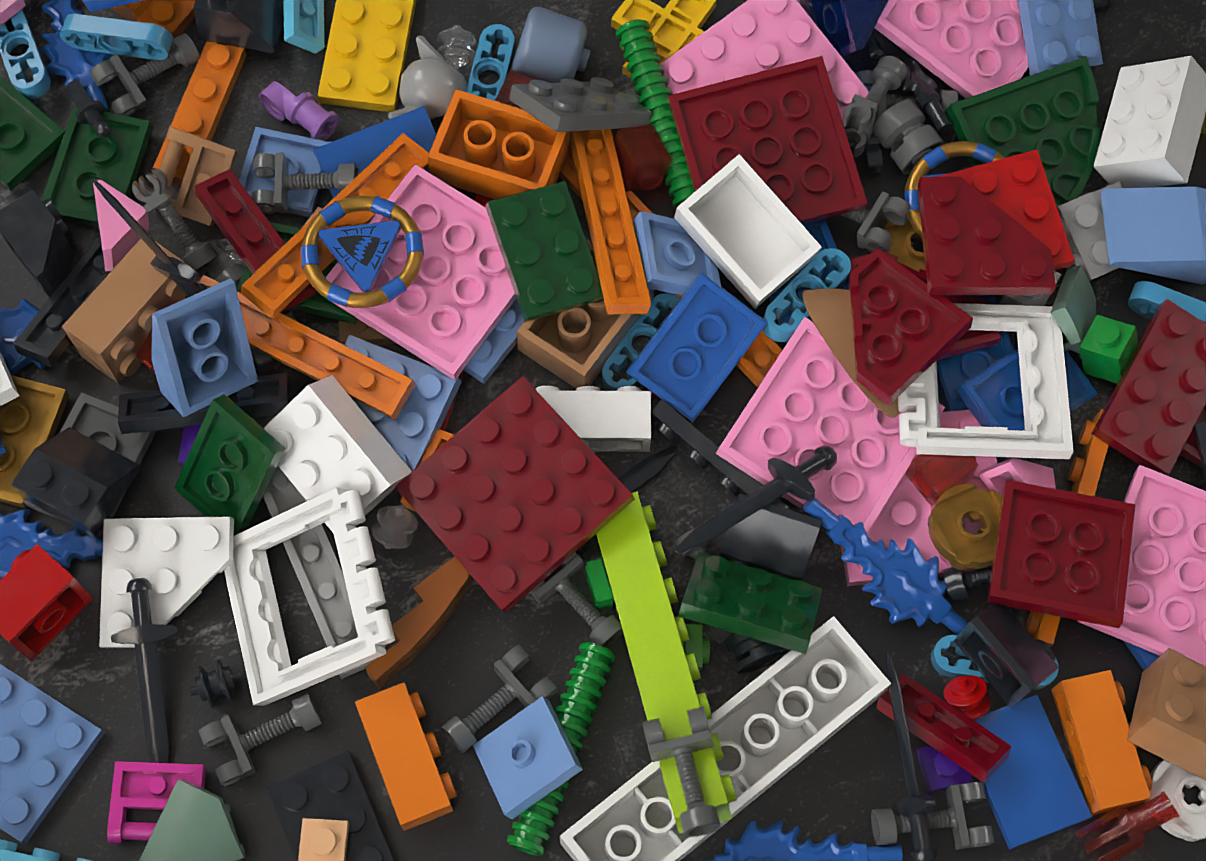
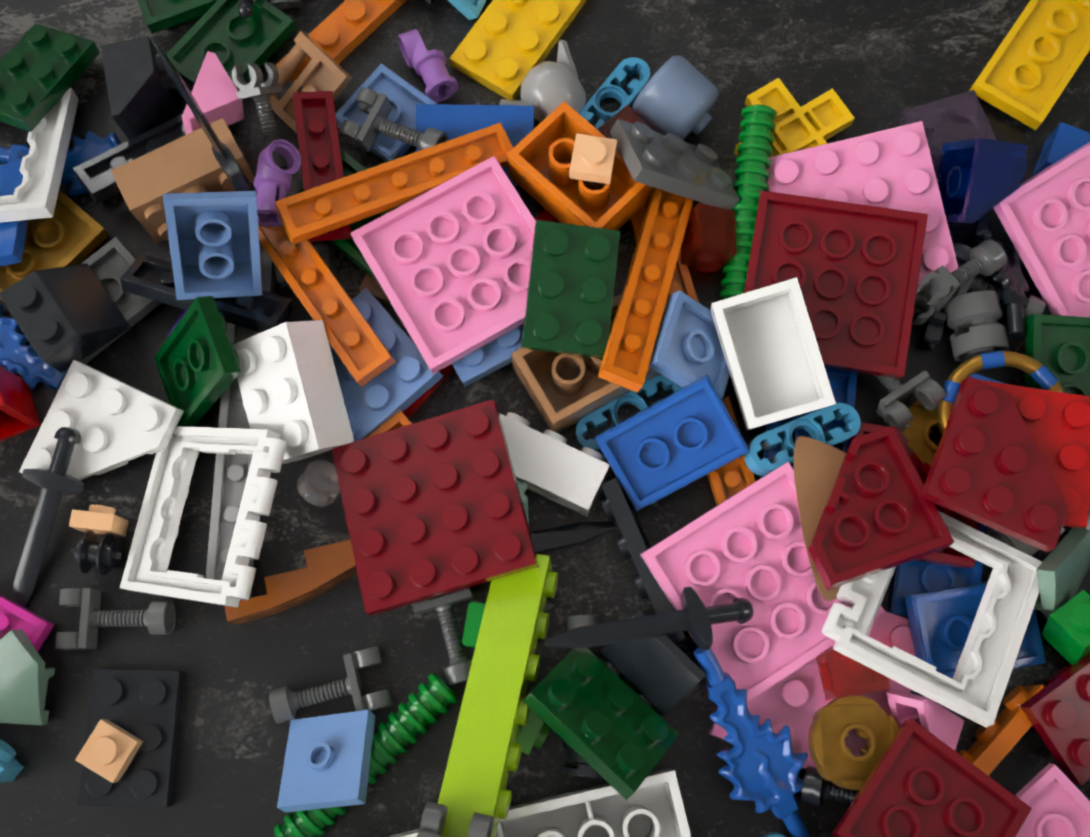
camera: 30 degrees right, 5 degrees up
(203, 652) = (99, 520): none -> light nougat plate
(220, 267) = (273, 182): none -> medium lavender connector
(362, 251) = (399, 217): piece -> none
(406, 755) = (224, 703): orange brick -> none
(456, 46) = (593, 64): clear wheel -> none
(509, 128) = (593, 159): none -> light nougat plate

